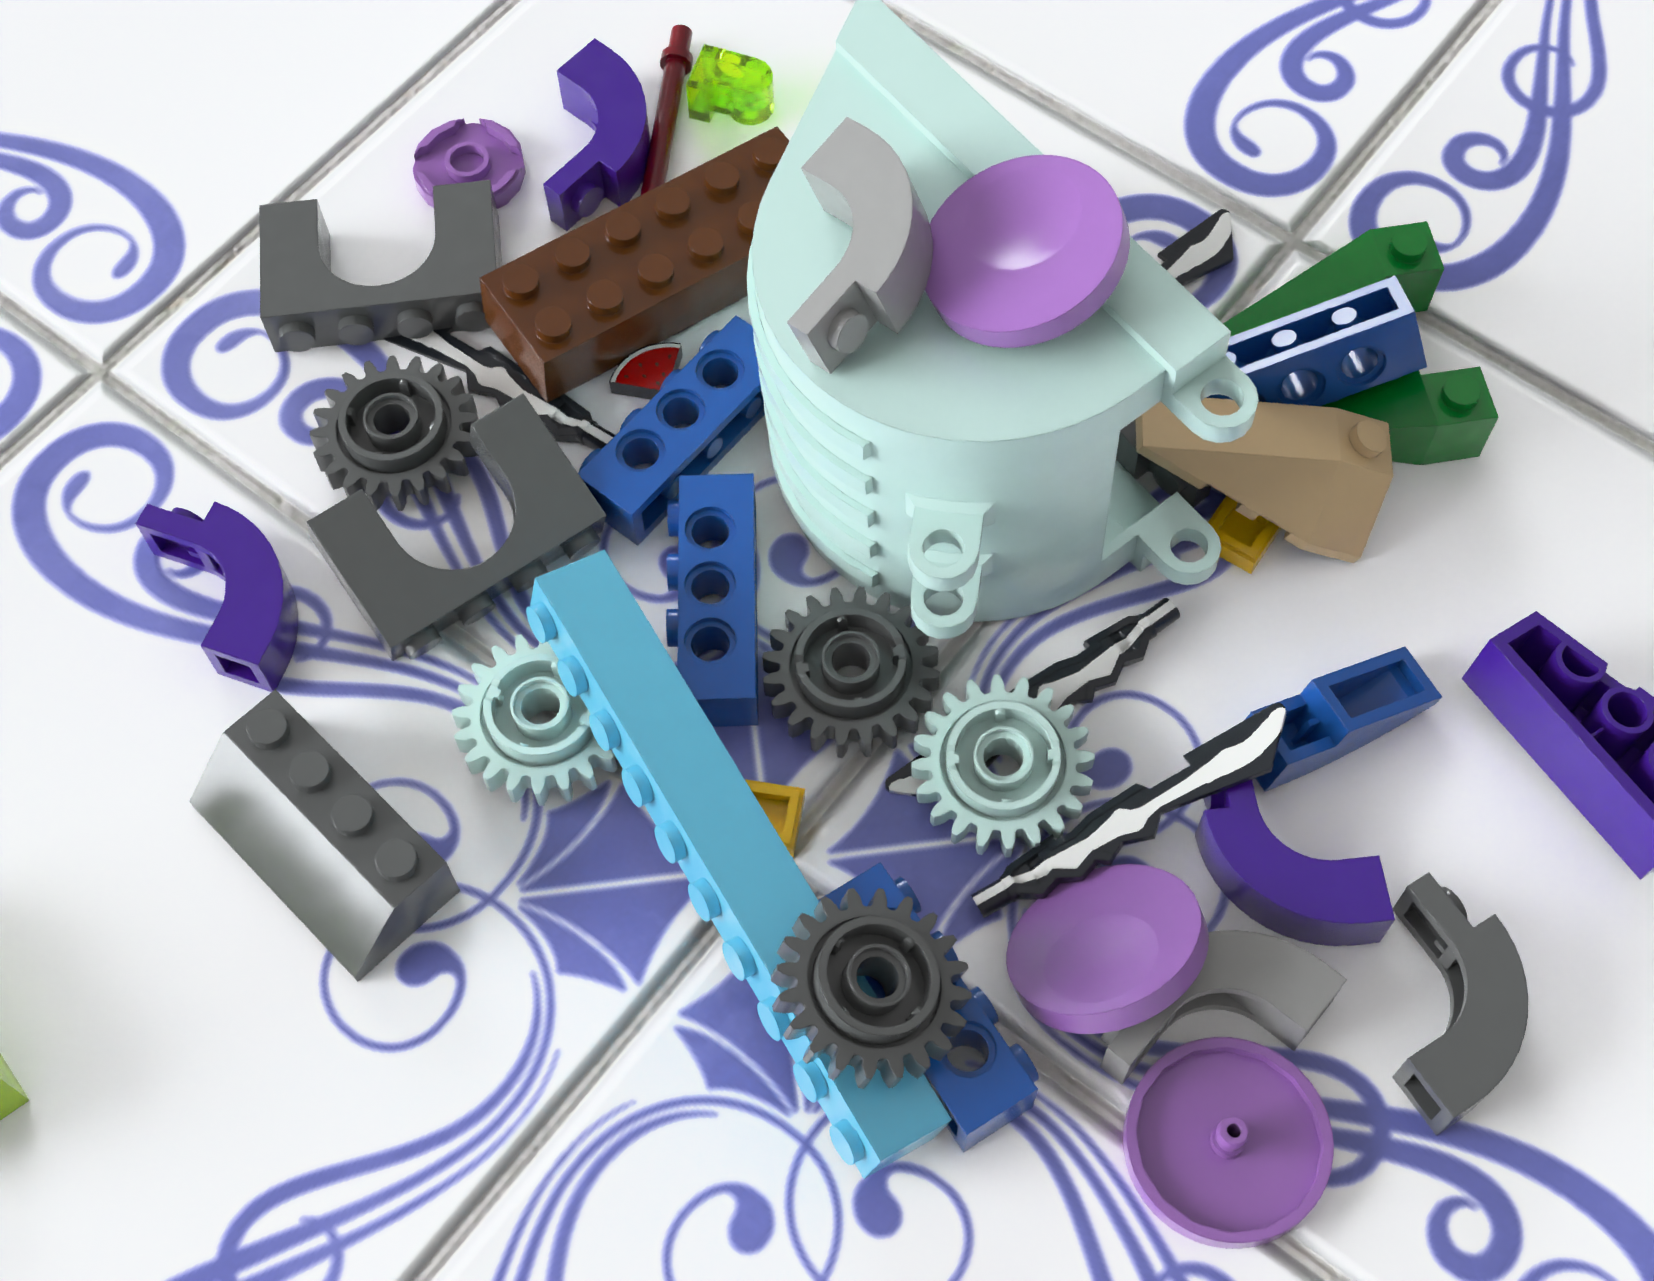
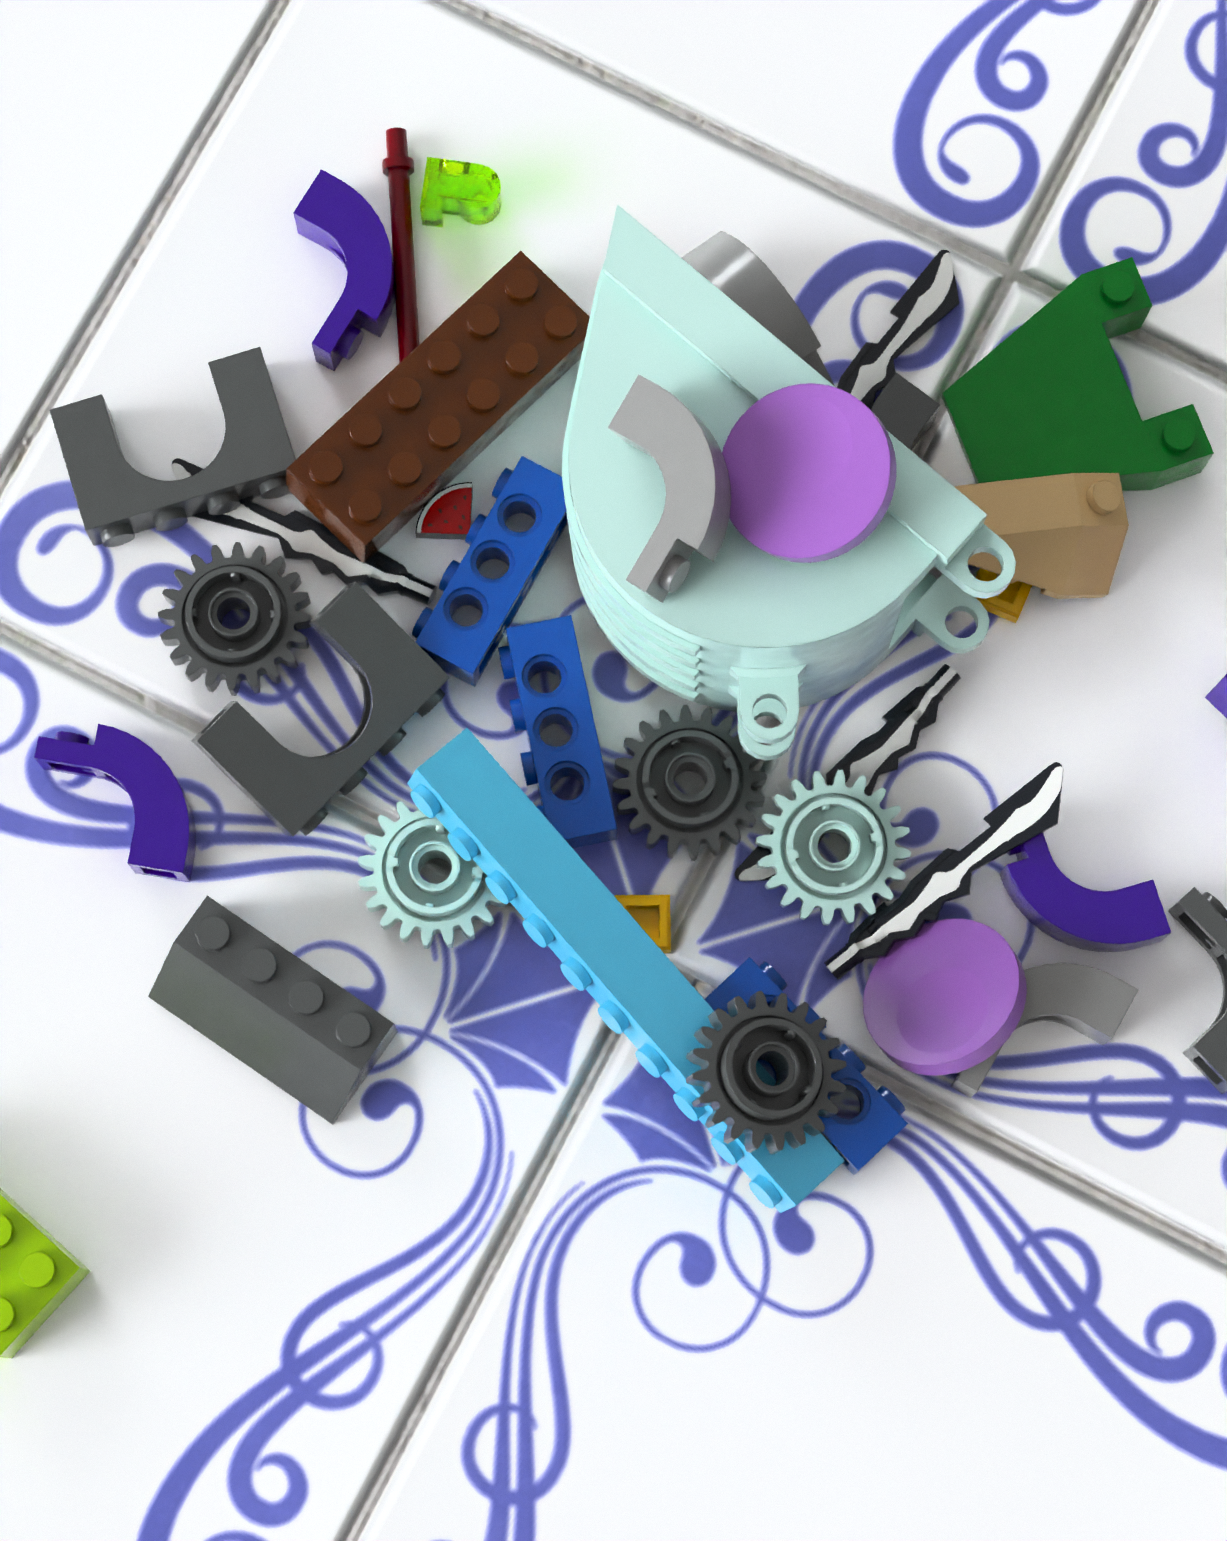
camera: 15 degrees left, 15 degrees up
(468, 154) = (224, 314): medium lavender tile -> none
(1228, 1142) = (1059, 1130): medium lavender piece -> none
(1332, 347) = (1037, 425): blue brick -> none
(1348, 712) = (1114, 745): blue slope -> none

